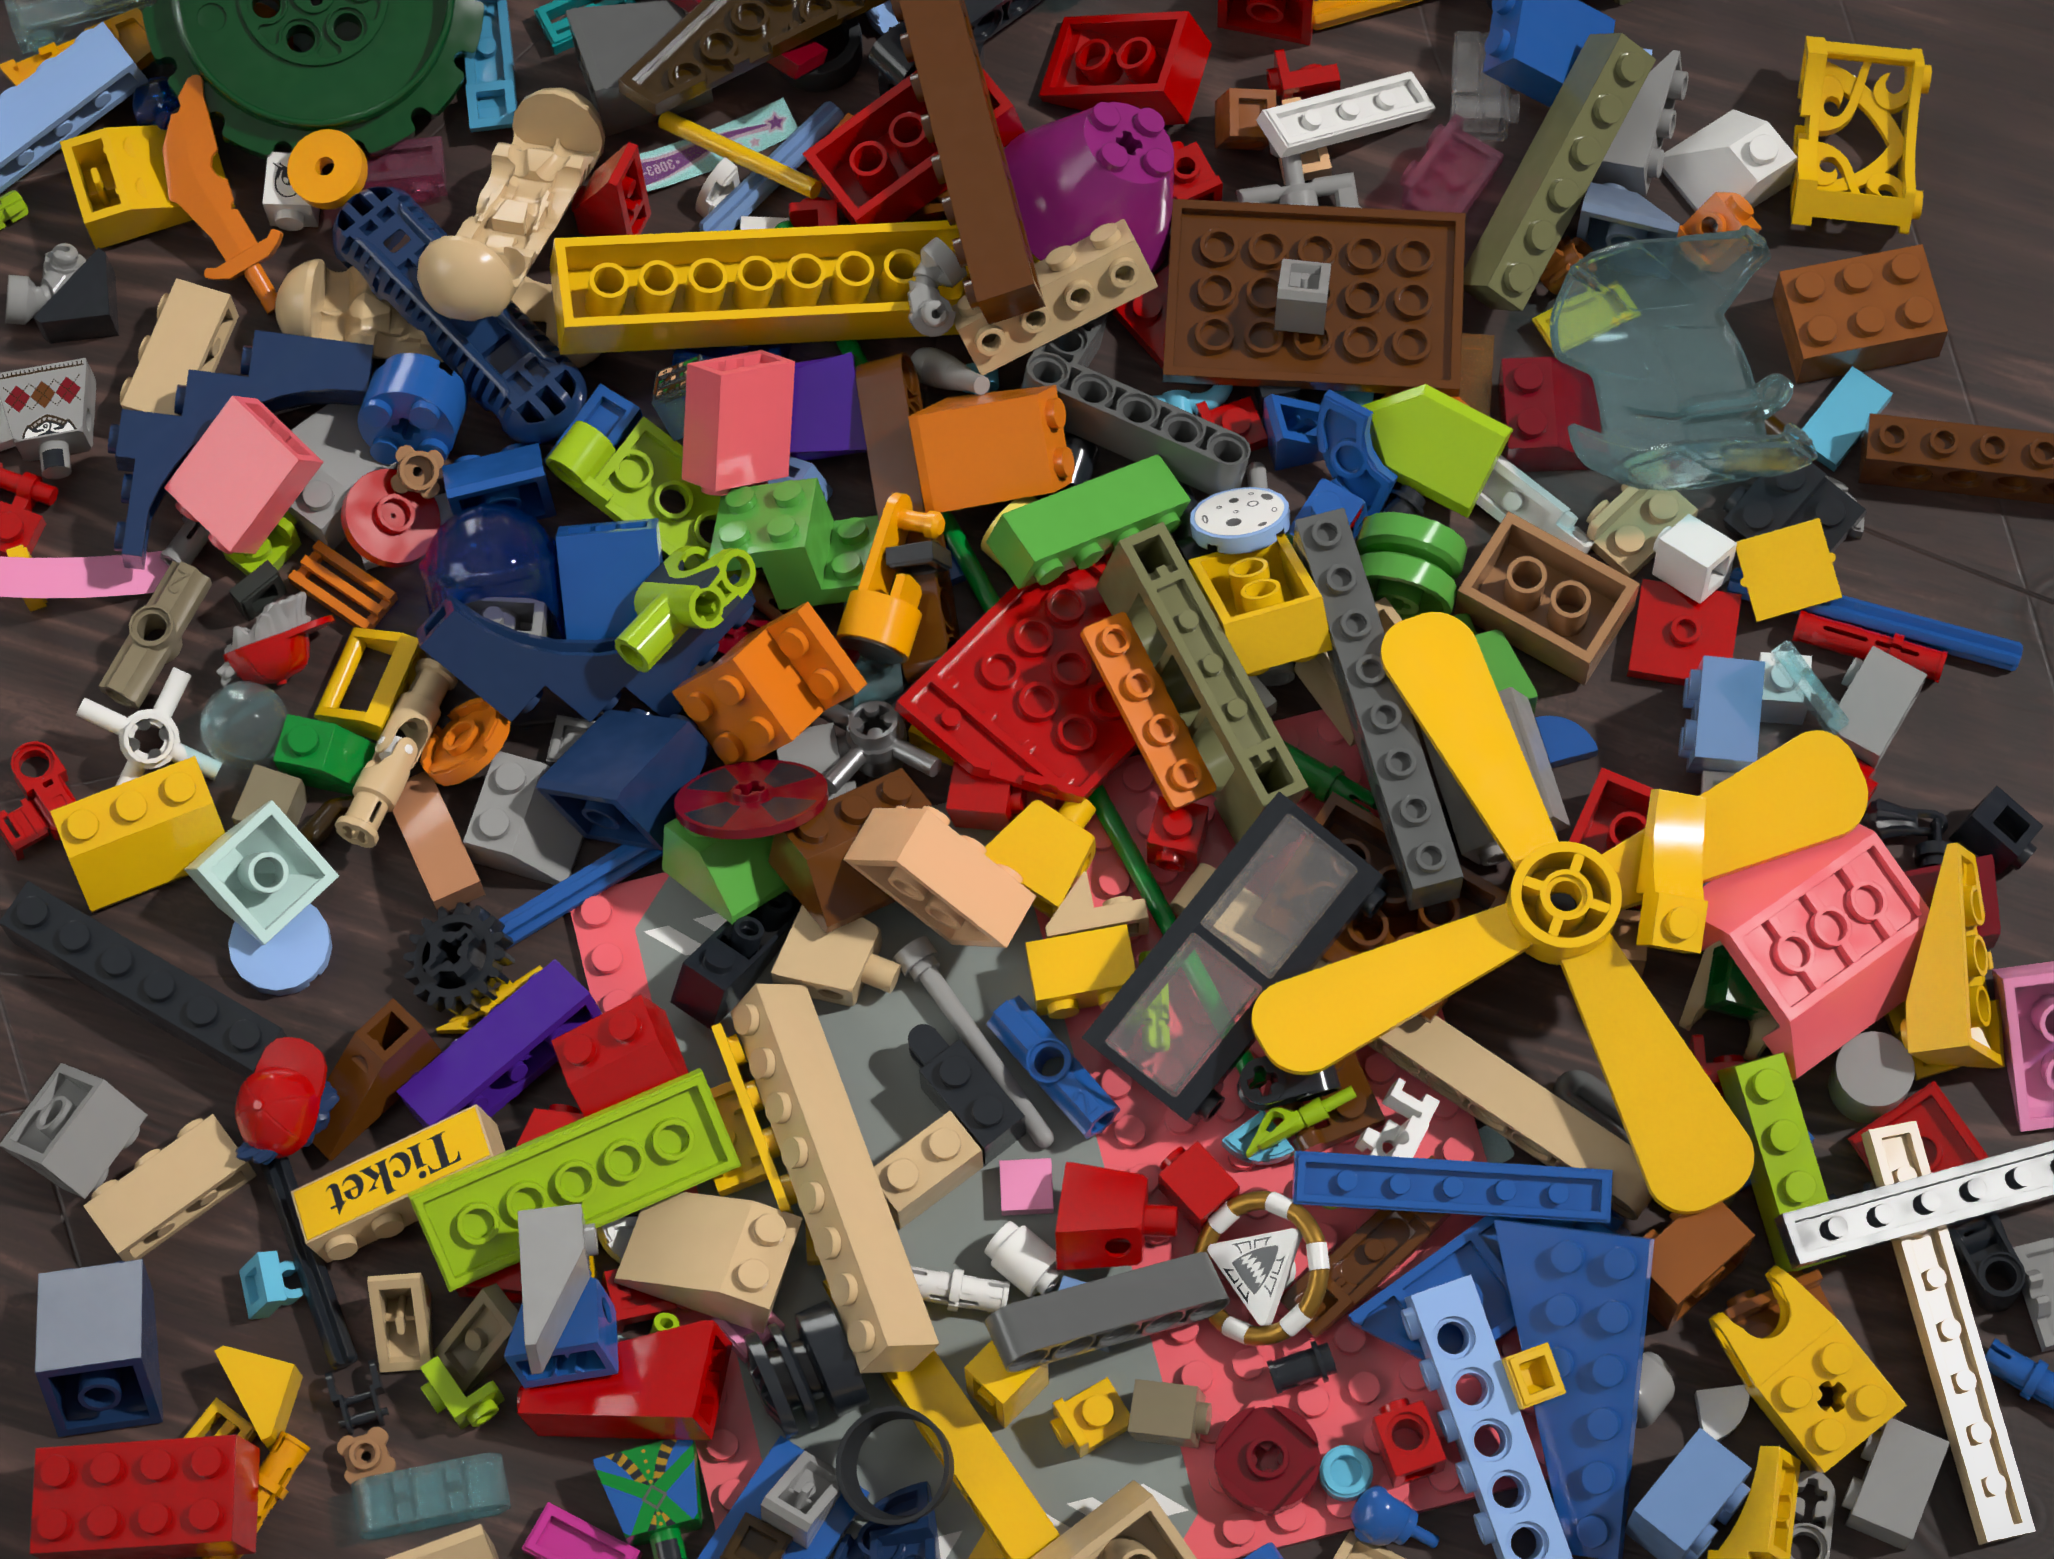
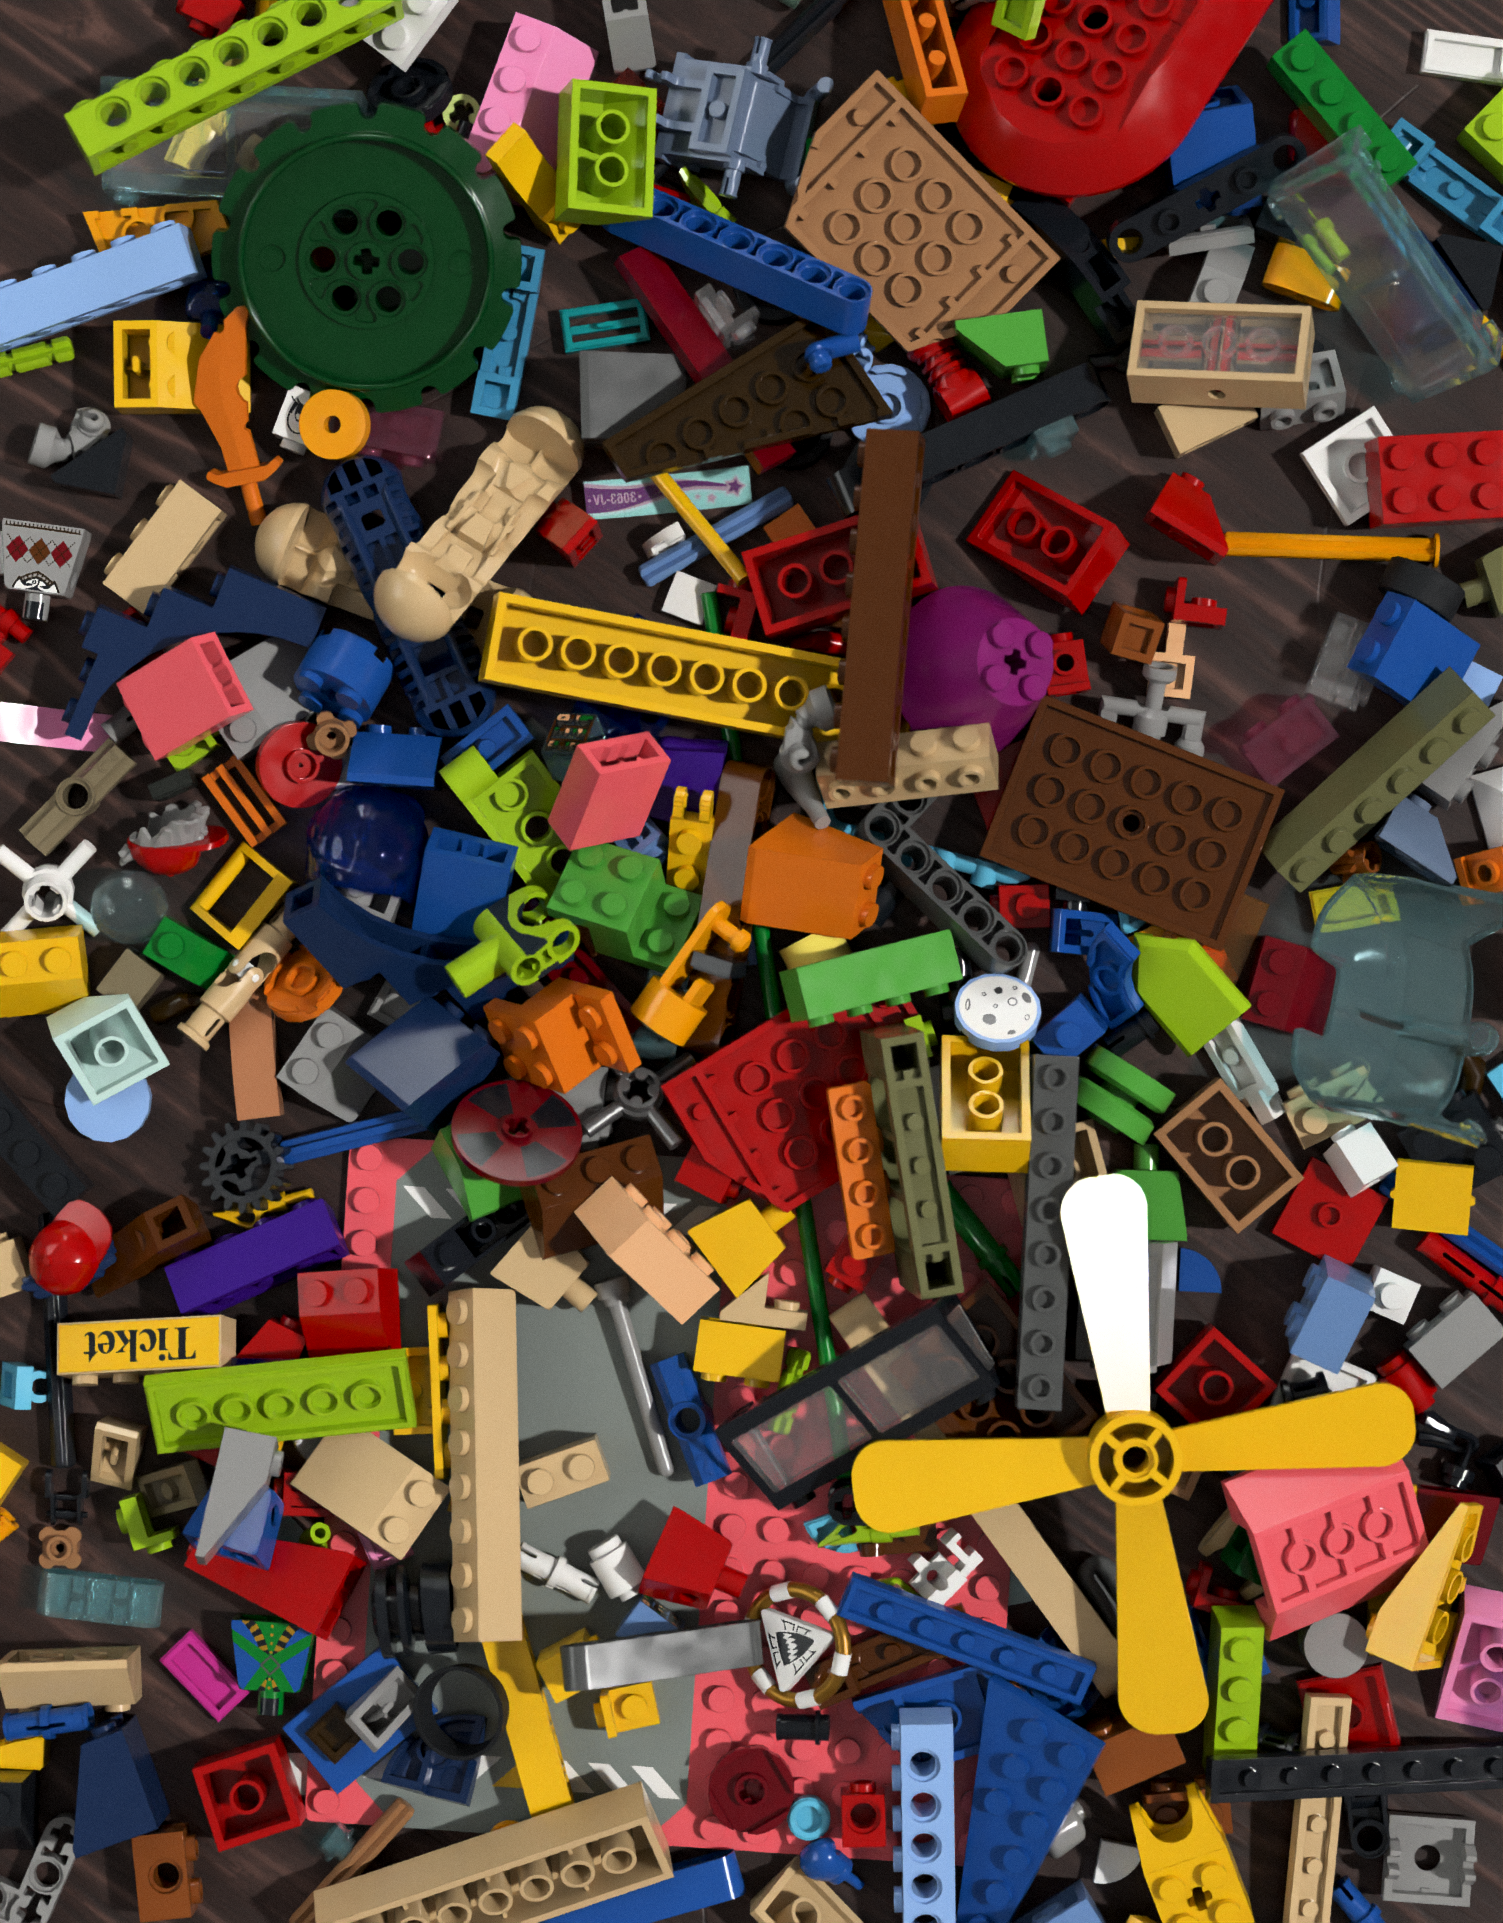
camera: 15 degrees right, 20 degrees up
(844, 460) = (689, 841): none -> yellow hinge
(963, 1086) = (613, 1418): black brick -> none
(1026, 1186) = (639, 1504): bright pink tile -> none
(1169, 1413) = (687, 1730): dark tan brick -> none
(1195, 1183) = (770, 1556): red brick -> none
(1302, 296) = (1121, 824): light grey slope -> none
(1345, 114) = (1217, 660): white tile -> none
(1533, 1376) = (974, 1811): yellow slope -> none
(1672, 873) = (1227, 1470): yellow slope -> none
(1809, 688) = (1402, 1334): clear light blue tile -> none

